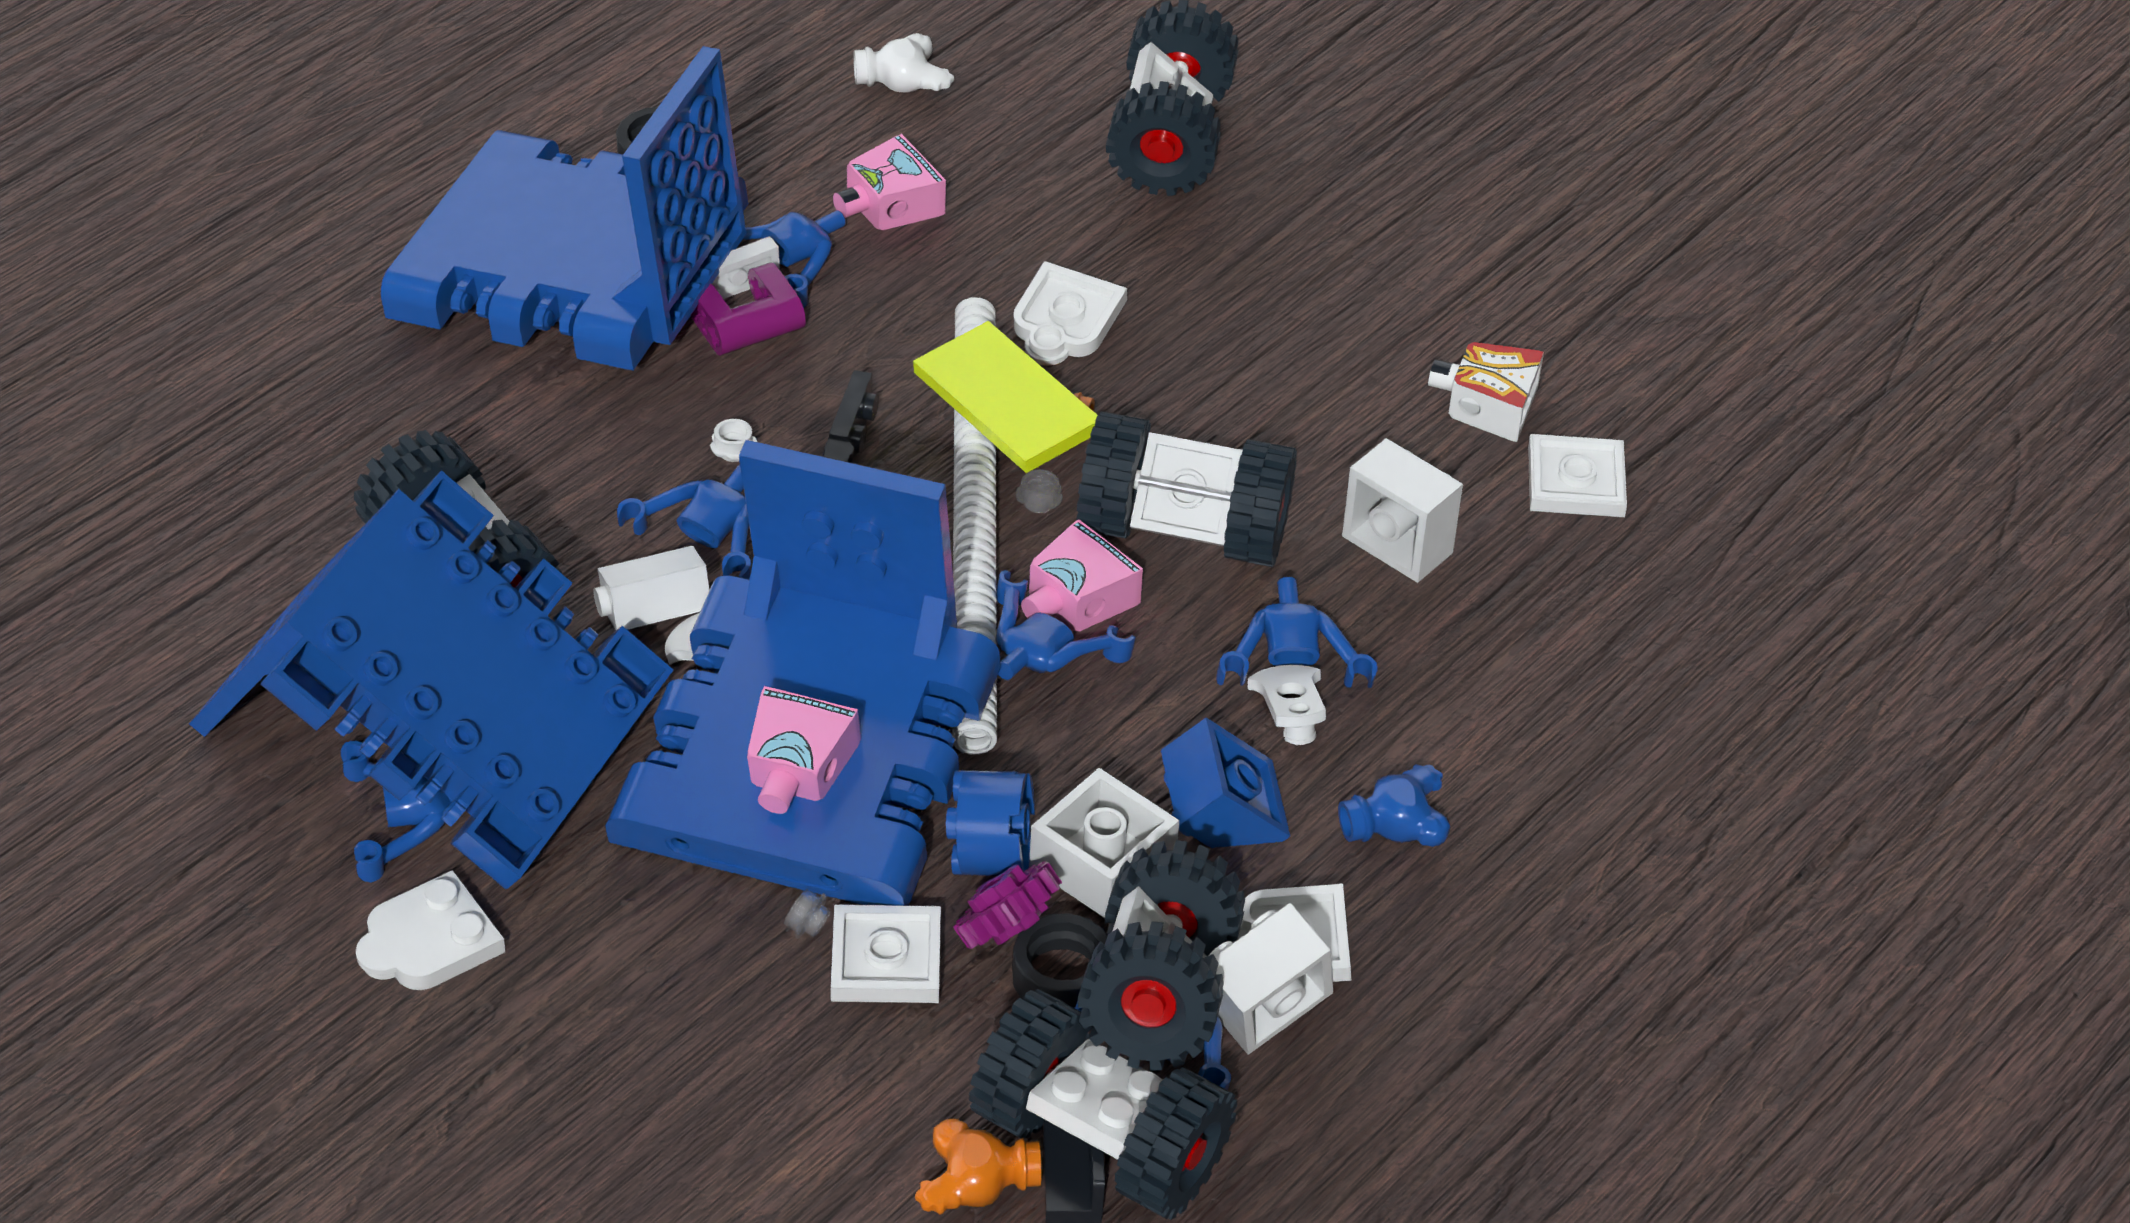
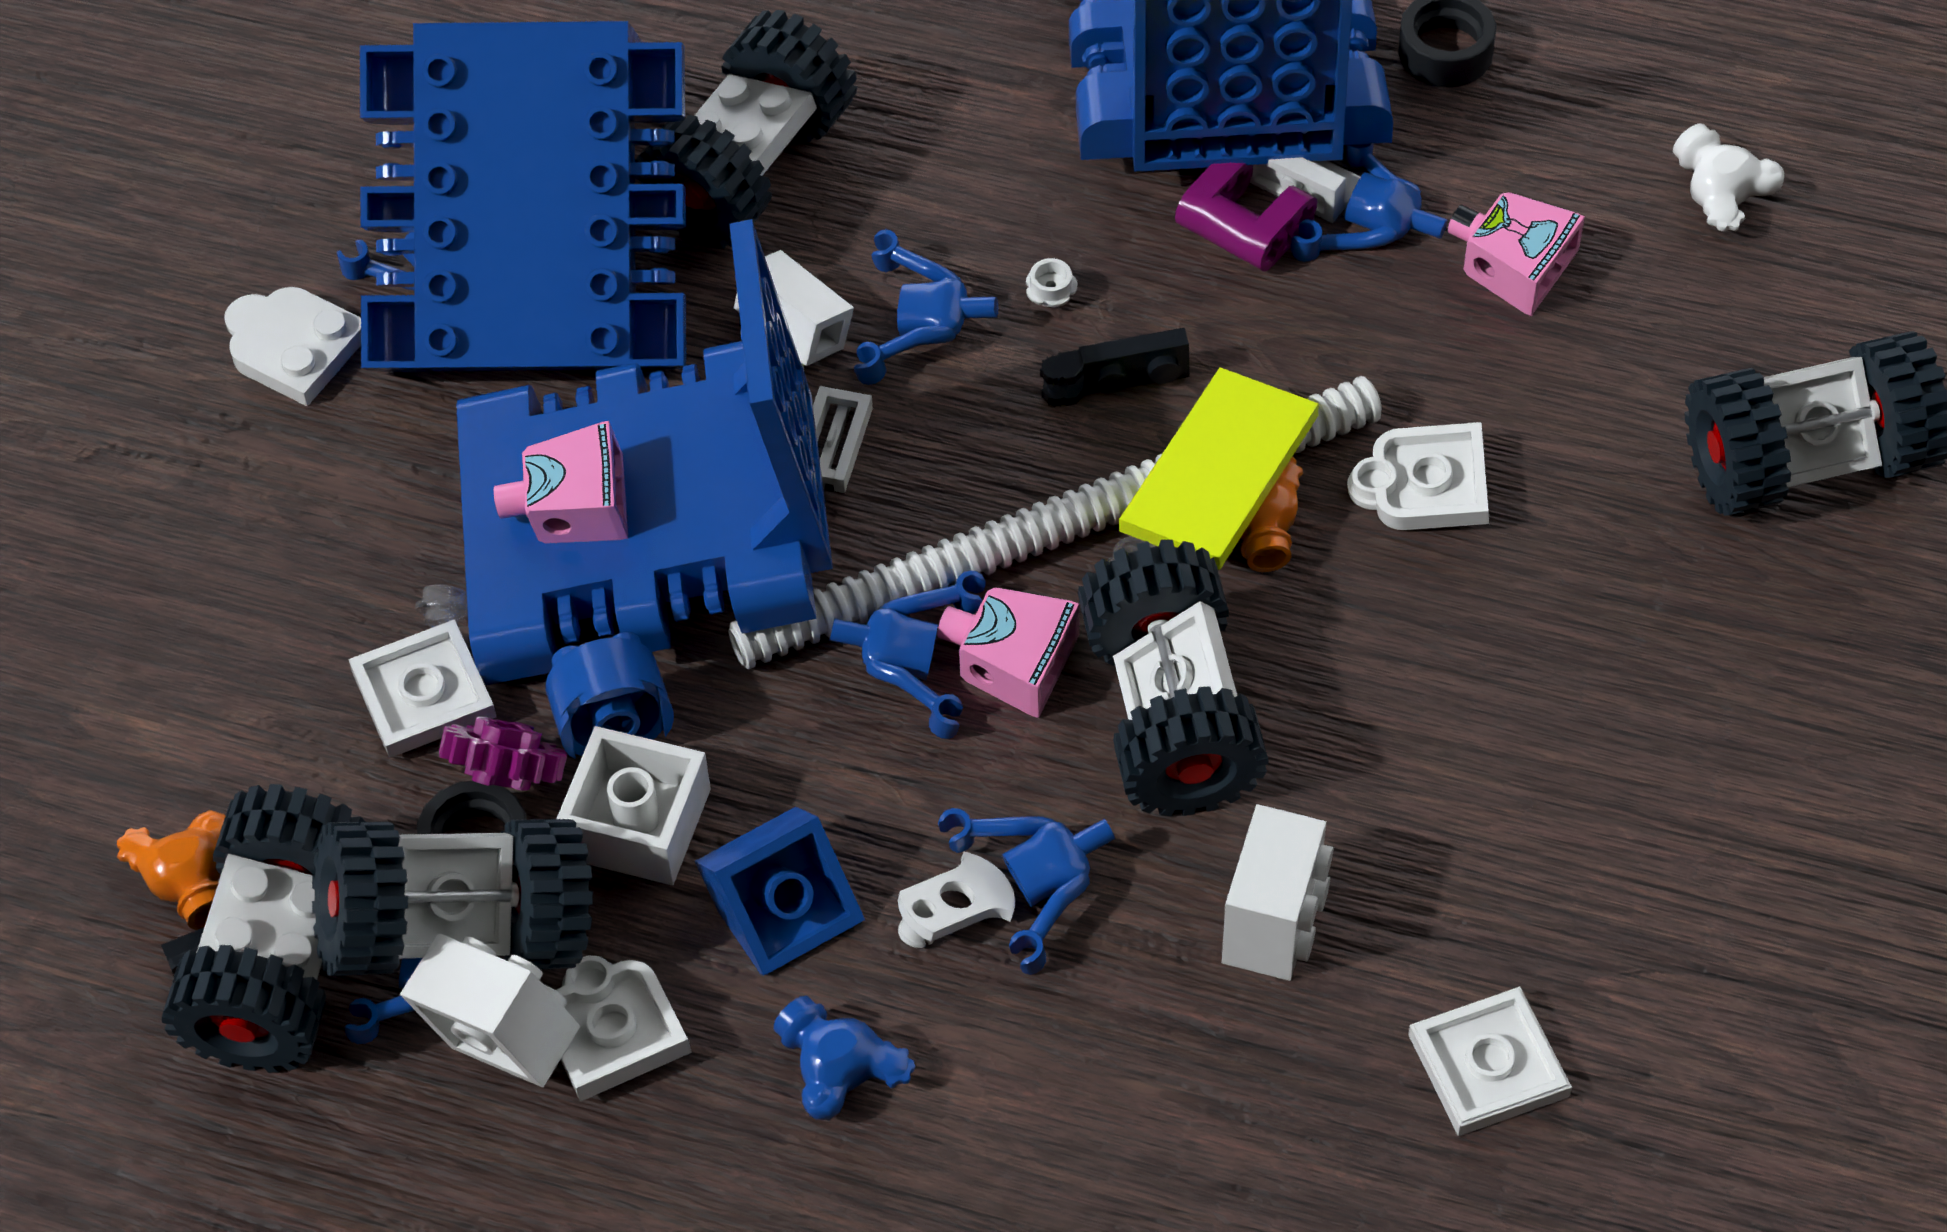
camera: 70 degrees right, 10 degrees up
(1491, 386) = (1569, 920): white torso -> none

